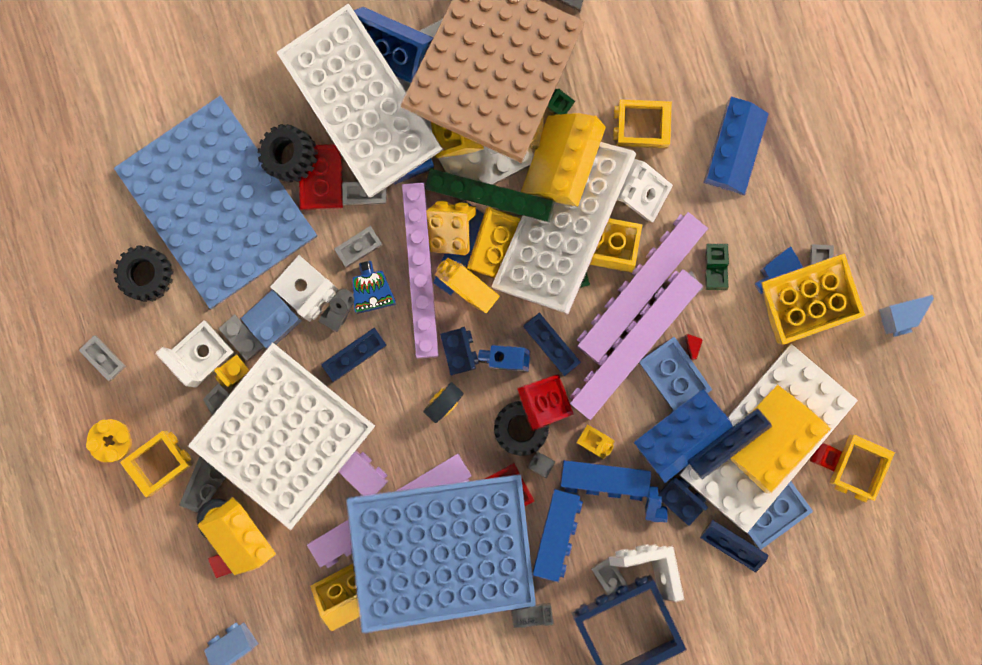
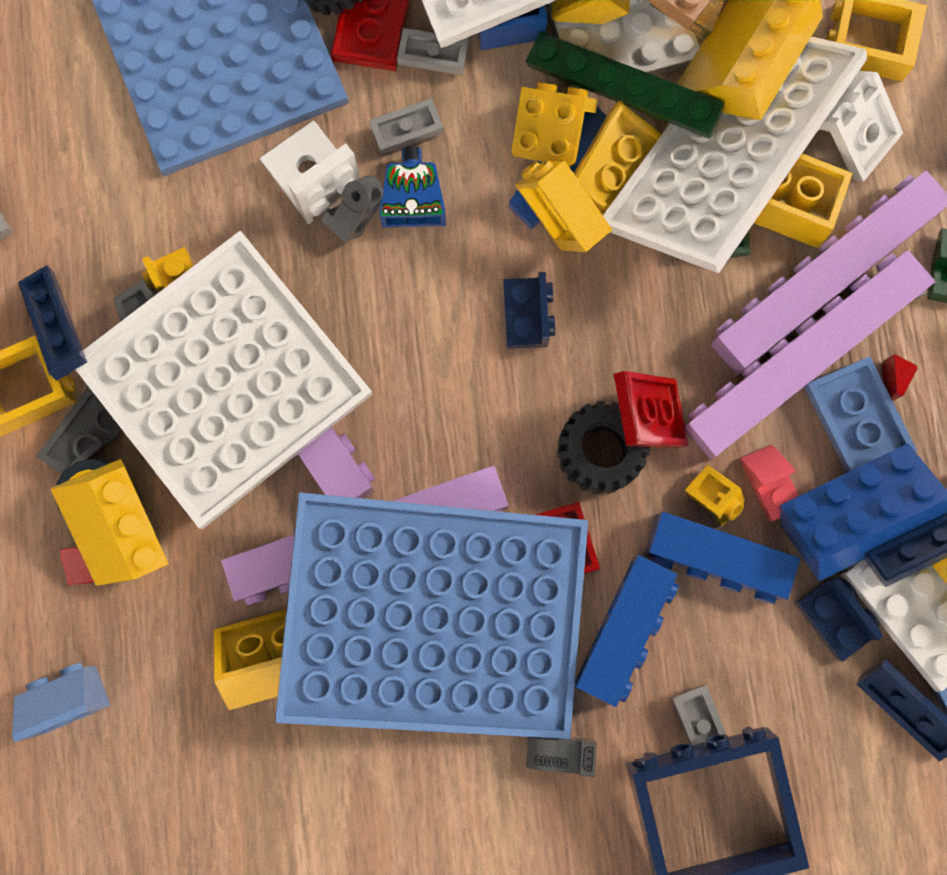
camera: 10 degrees right, 5 degrees down
(126, 268) = (55, 79): black tyre -> none
(169, 421) = (52, 323): none -> dark blue tile
(185, 359) = (104, 238): white bracket -> none
(241, 337) = (196, 223): light grey plate -> none
(271, 319) = (251, 206): medium blue slope -> none
(354, 355) = (364, 284): dark blue plate -> none
(420, 271) = (493, 180): lavender brick -> none
(443, 402) = (487, 381): black wheel -> none
(514, 358) = (612, 336): blue torso -> none
(541, 464) = (623, 511): dark grey leg -> none
(551, 344) = (674, 330): dark blue plate -> none
(627, 424) = (770, 479): none -> coral slope
(653, 508) = (791, 618): blue bracket -> none
(663, 565) = (794, 718): white bracket -> none

